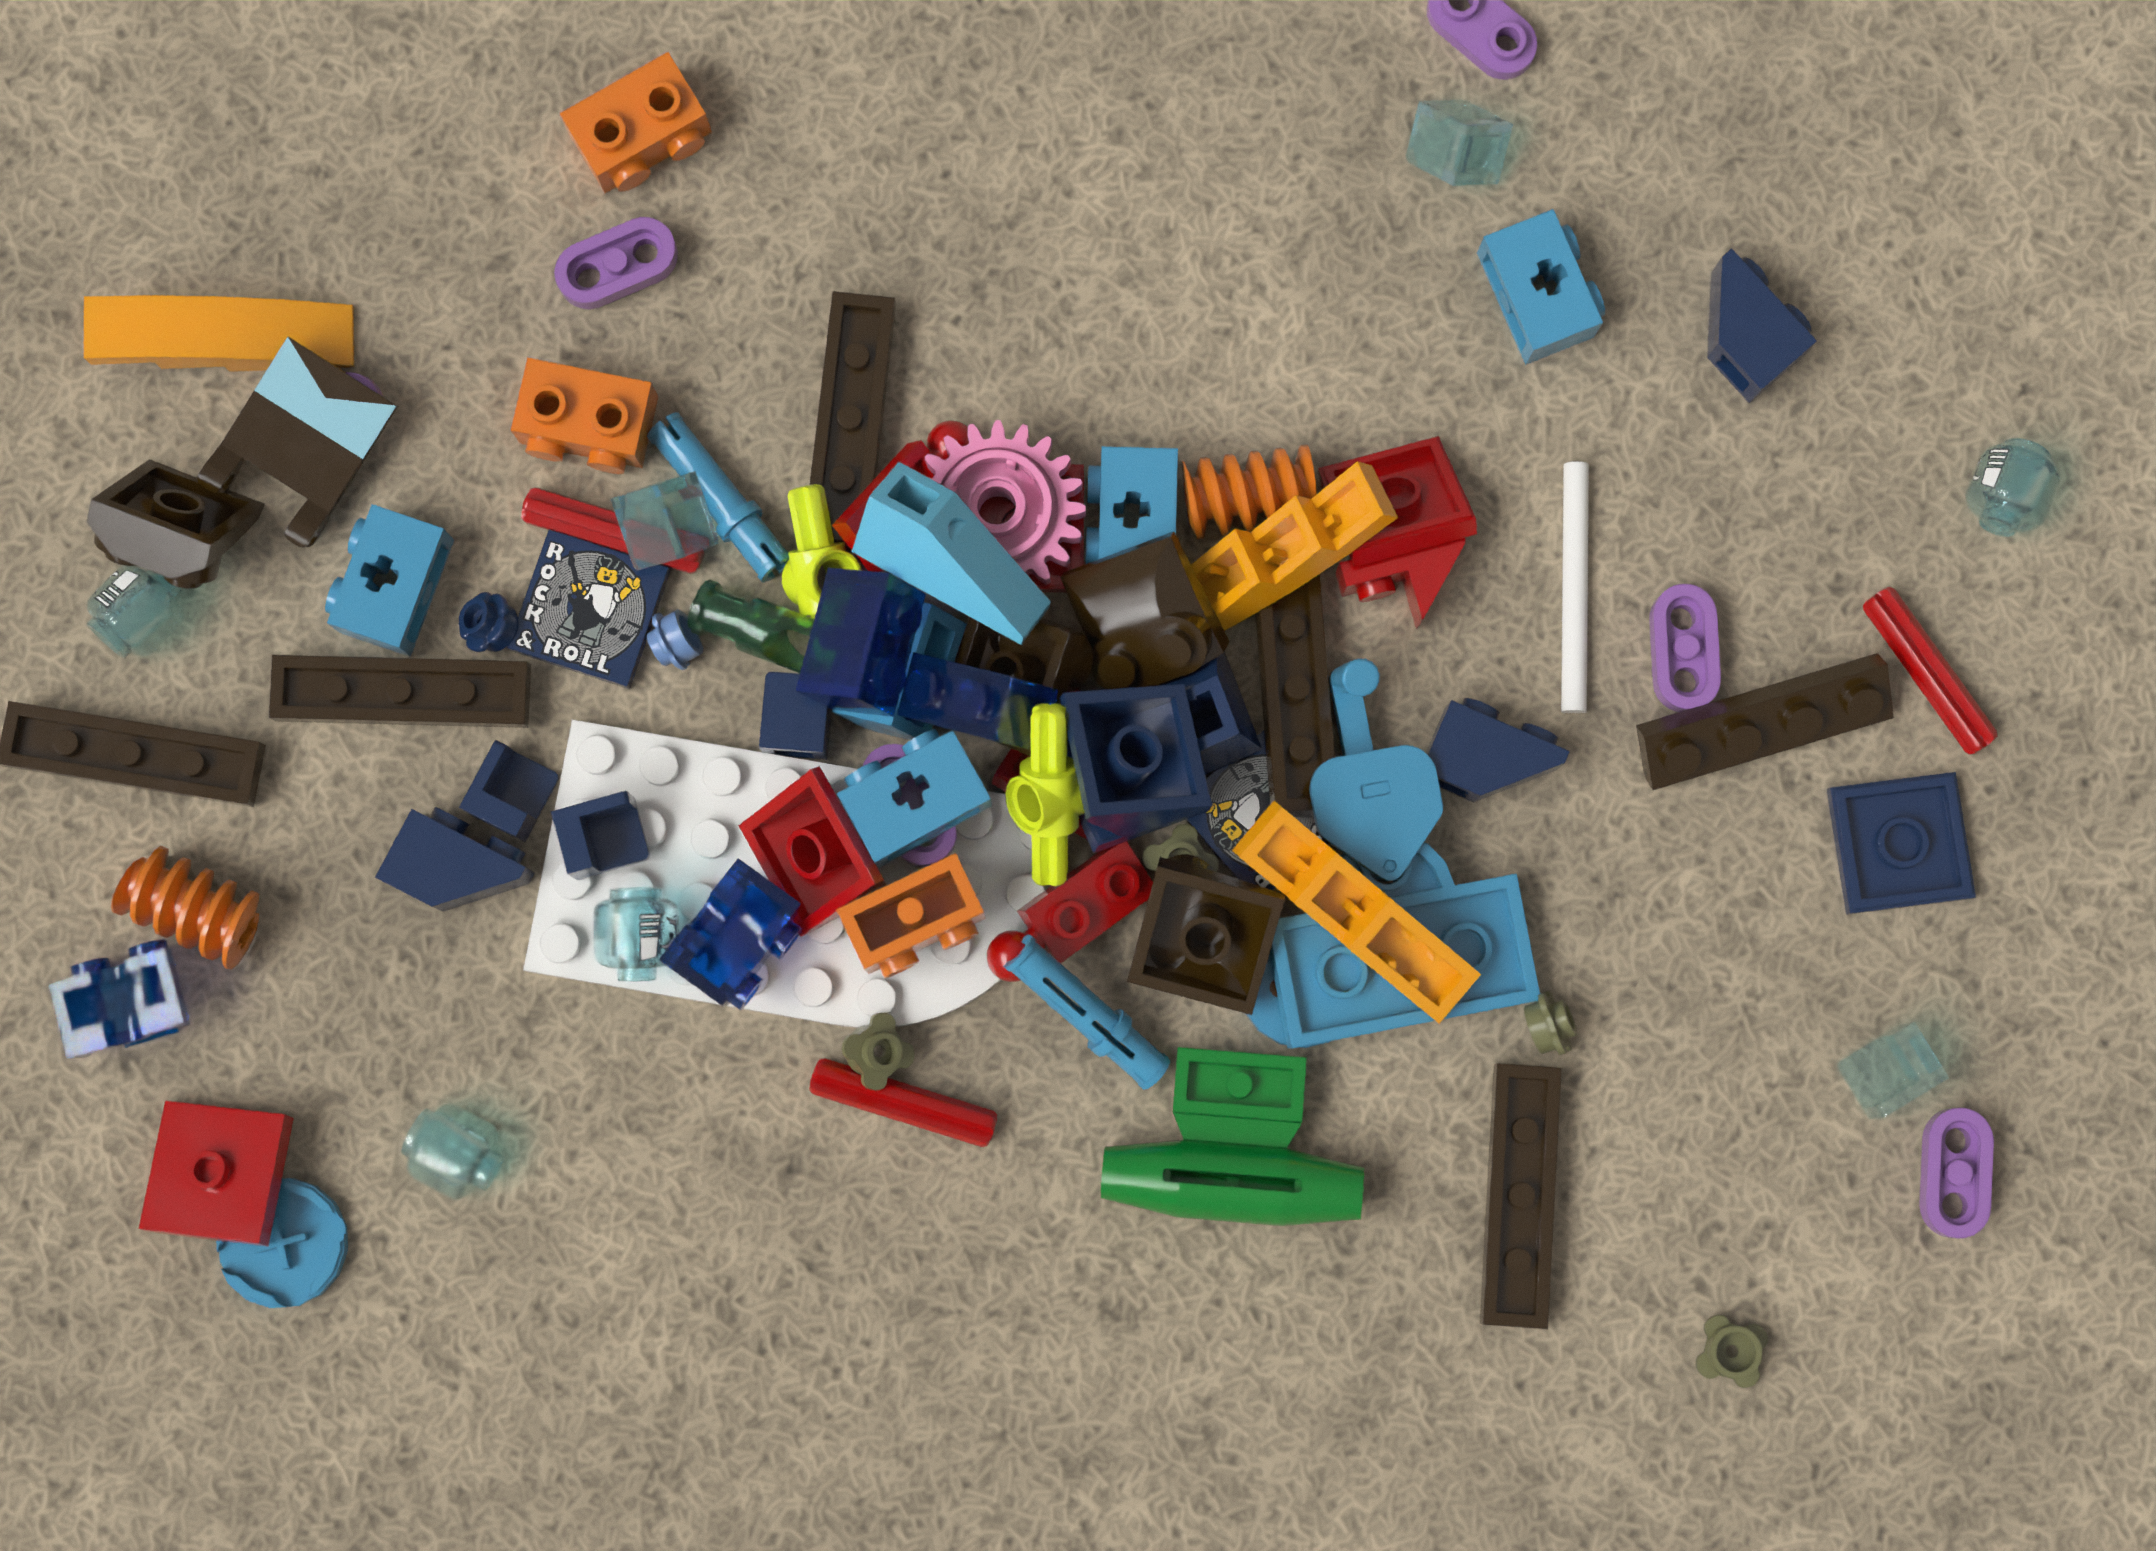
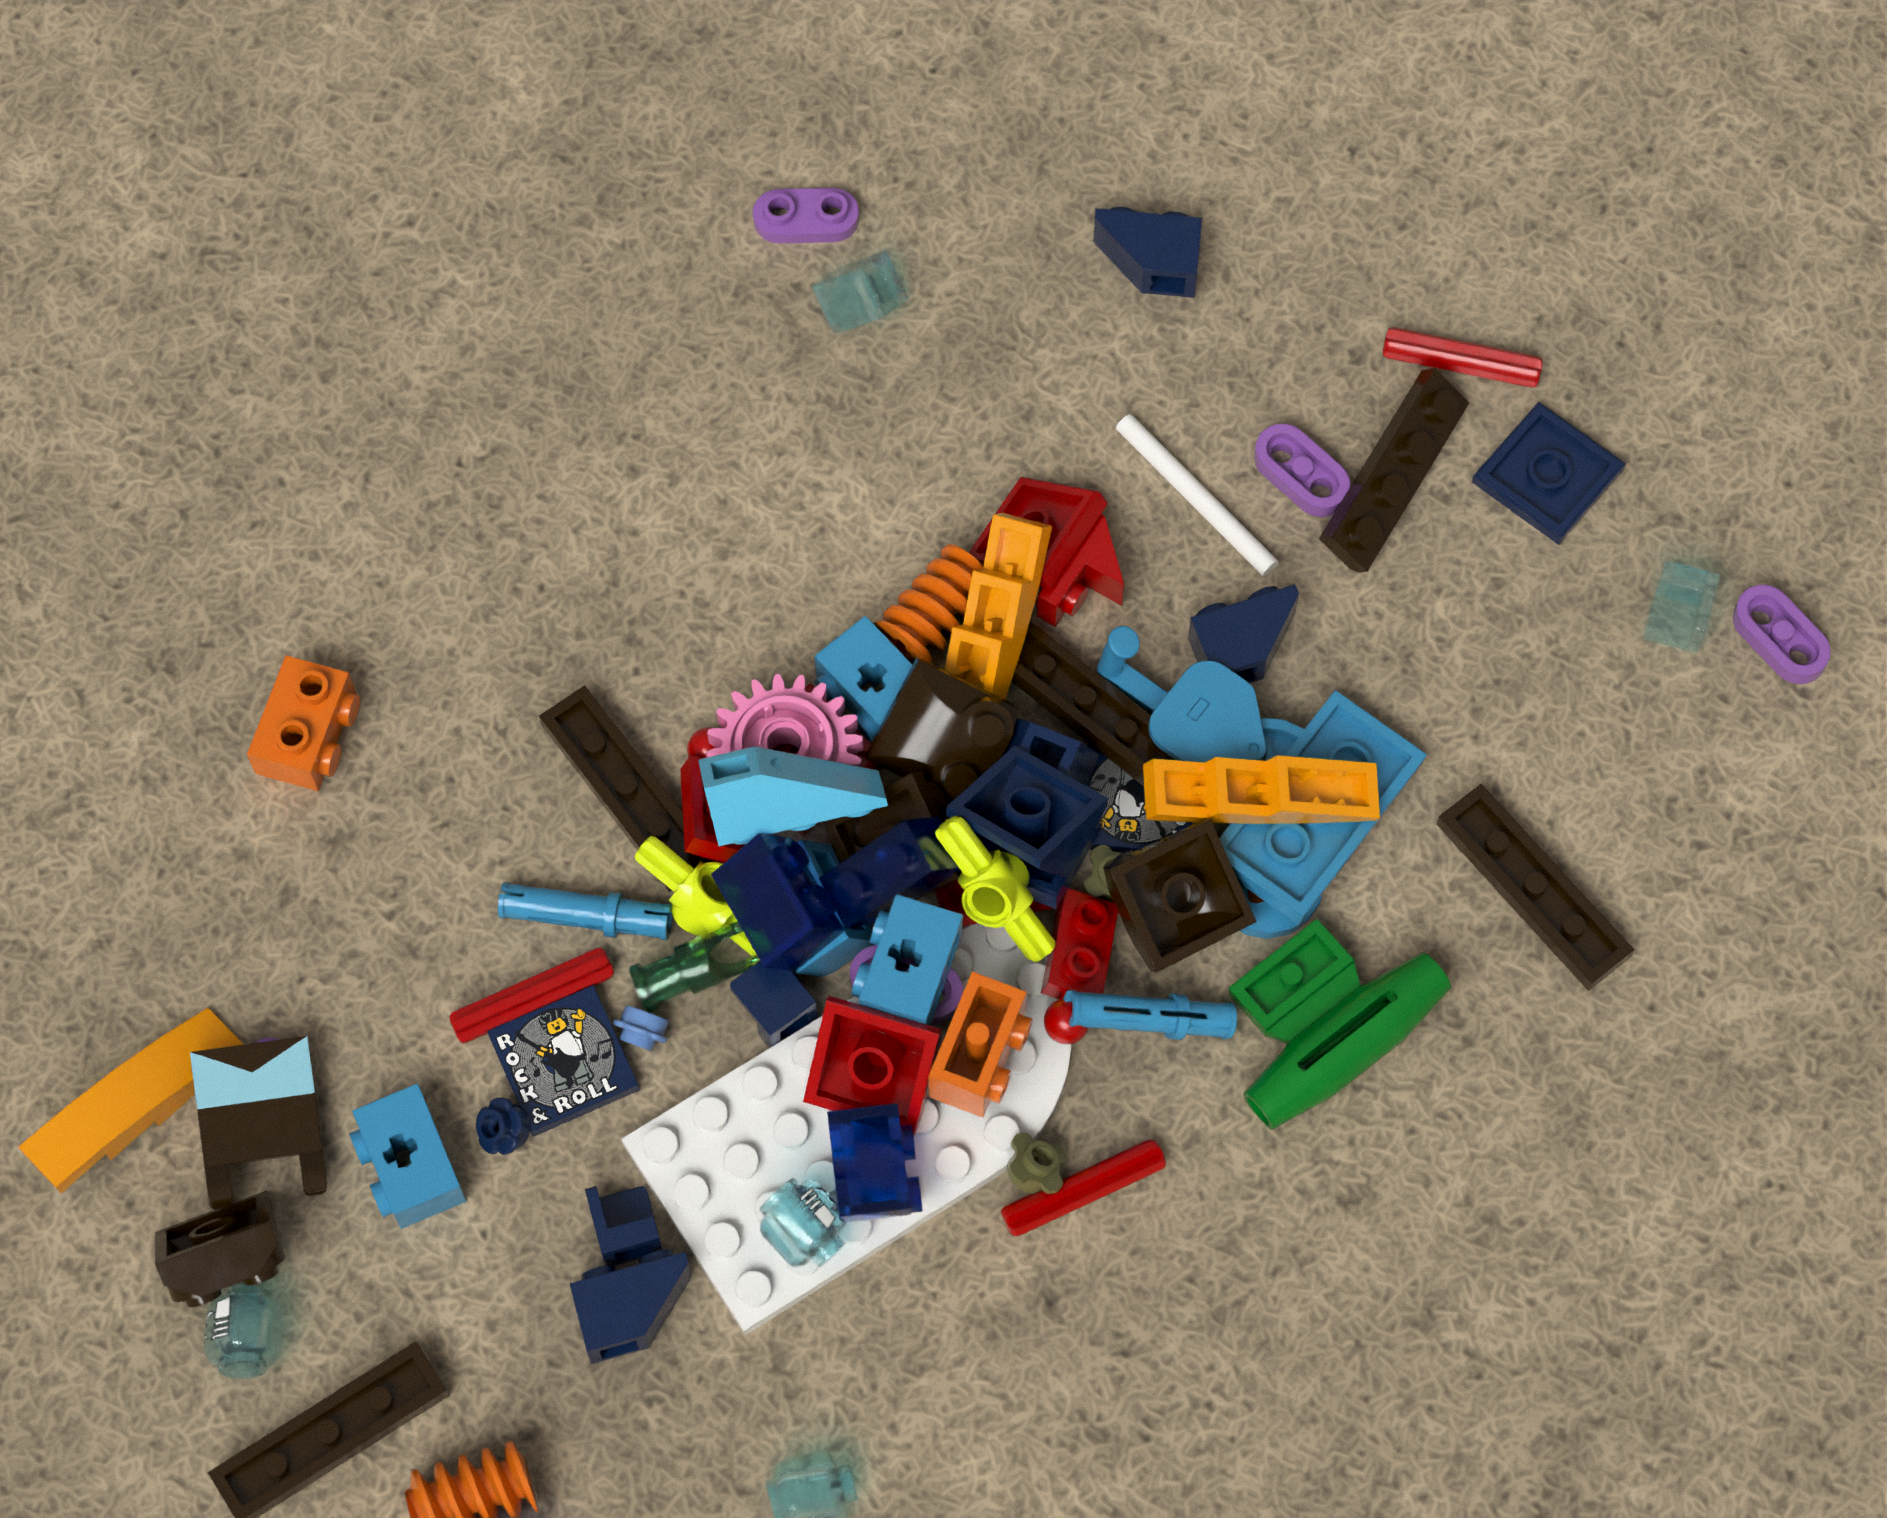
camera: 40 degrees left, 15 degrees down
(400, 691) = (482, 1225): dark brown plate -> none
(584, 415) = (443, 935): orange brick -> none
(600, 835) = (716, 1186): dark blue panel -> none
(614, 258) = (370, 826): medium lavender plate -> none
(665, 521) = (564, 953): clear light blue panel -> none
(1536, 320) = (970, 332): dark azure brick -> none
(1550, 1024) = (1447, 764): olive plate -> none
(1749, 1345) = (1769, 853): olive plate -> none
(2013, 487) = (1404, 205): clear light blue head -> none

